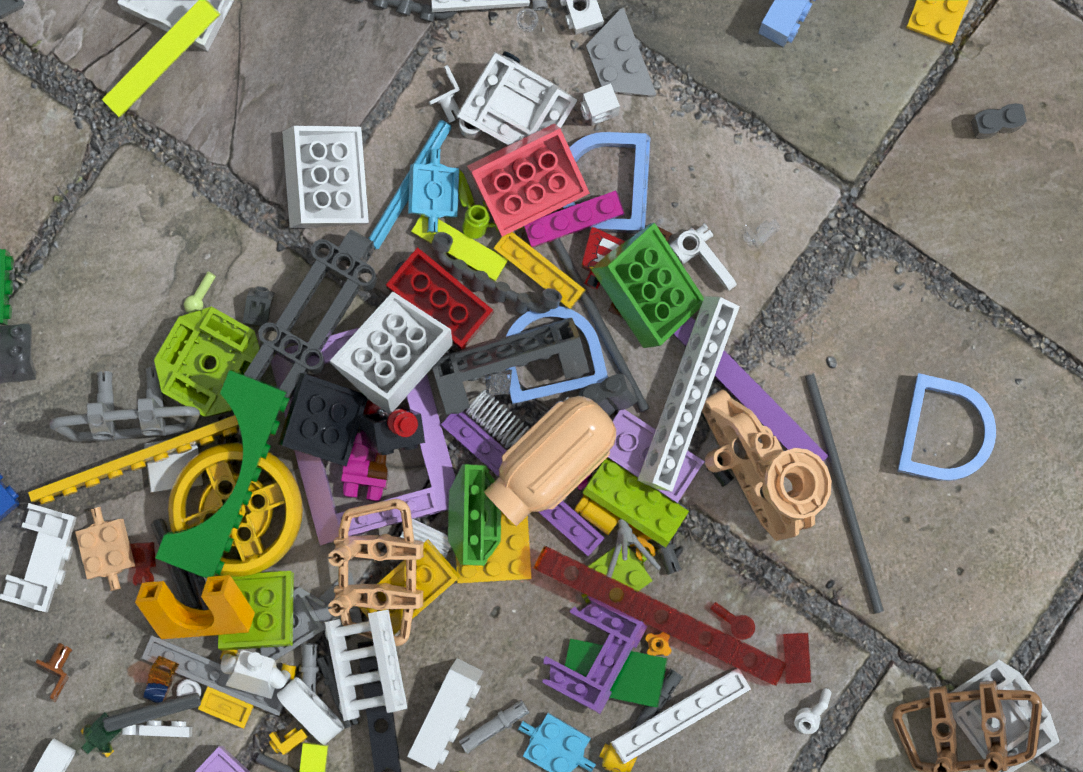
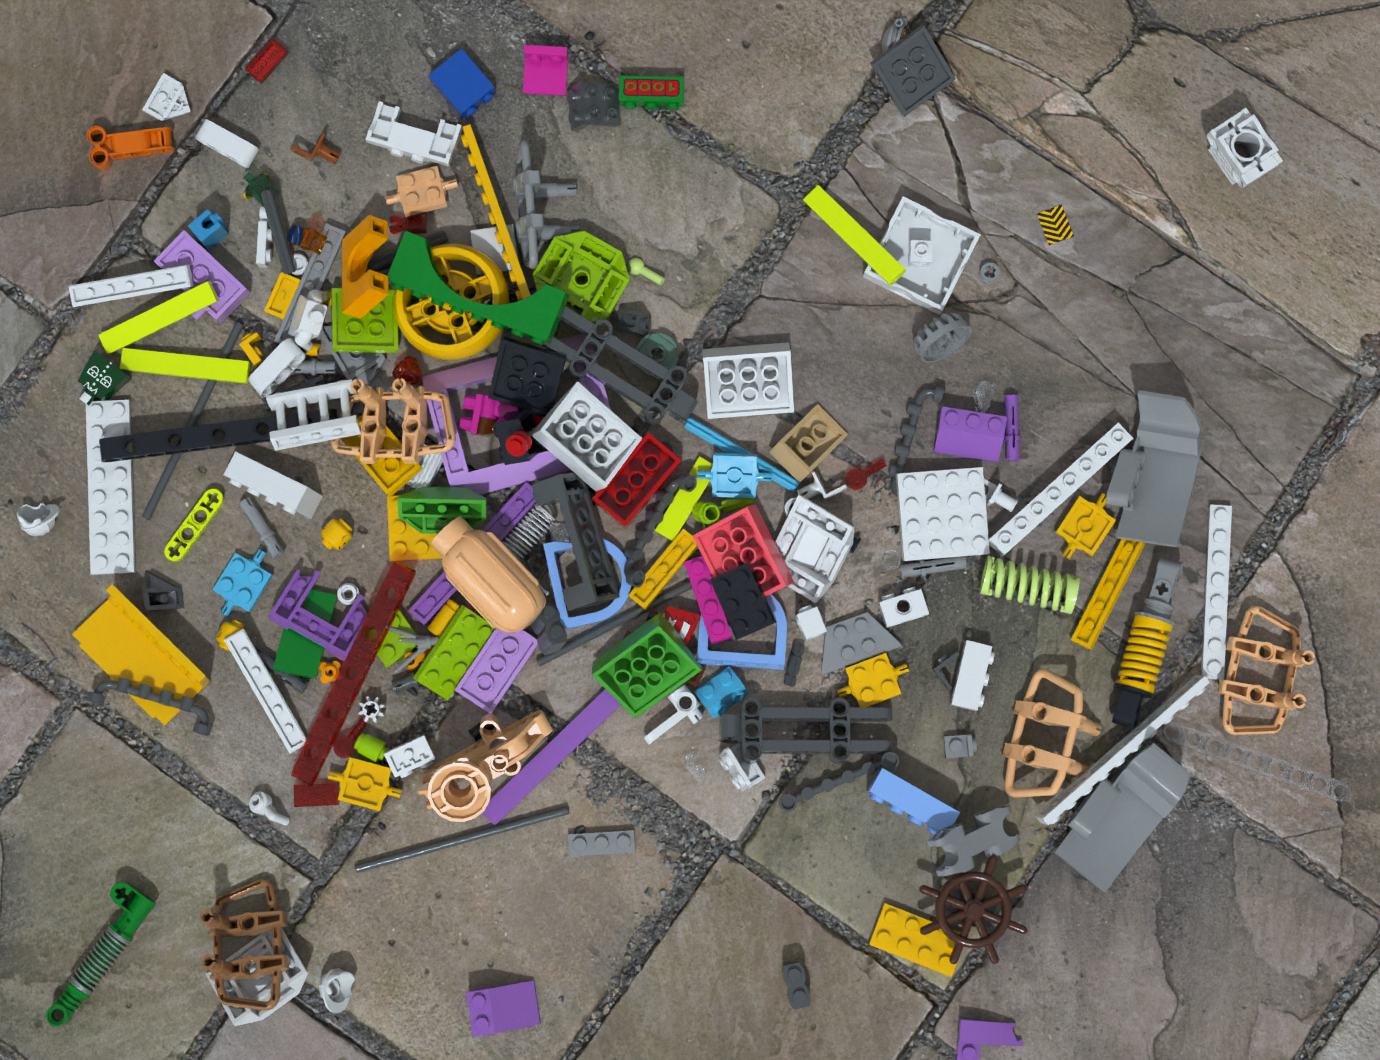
camera: 90 degrees right, 0 degrees up
(282, 271) = (659, 342): none -> sand green plate
(314, 561) = (408, 370): none -> clear red brick
(397, 109) = (808, 443): none -> tan slope
(436, 55) = (857, 478): none -> clear red plate
(501, 640) = (336, 534): none -> yellow head
(561, 629) = (341, 593): none -> white plate
(576, 178) = (743, 600): none -> black plate
(645, 125) = (794, 665): none -> dark grey axle
(662, 39) = (873, 680): none -> yellow plate
(676, 205) = (721, 692): none -> medium azure bracket
(688, 393) = (548, 699): white brick -> none
(707, 593) = (365, 711): none -> white gear
(719, 188) = (733, 730): none -> dark grey beam
(742, 596) = (370, 747): none -> lime brick
(753, 550) = (410, 756): none -> white bracket
(760, 181) = (743, 774): none -> white bracket
(784, 602) = (365, 784): none -> yellow plate
(798, 127) = (789, 802): none -> dark grey bar
(846, 337) = (601, 843): none -> light grey plate
(954, 388) = (477, 925): light blue window -> none
(1014, 630) = (336, 989): none -> white piece
(1030, 444) = (503, 1008): none -> medium lavender slope

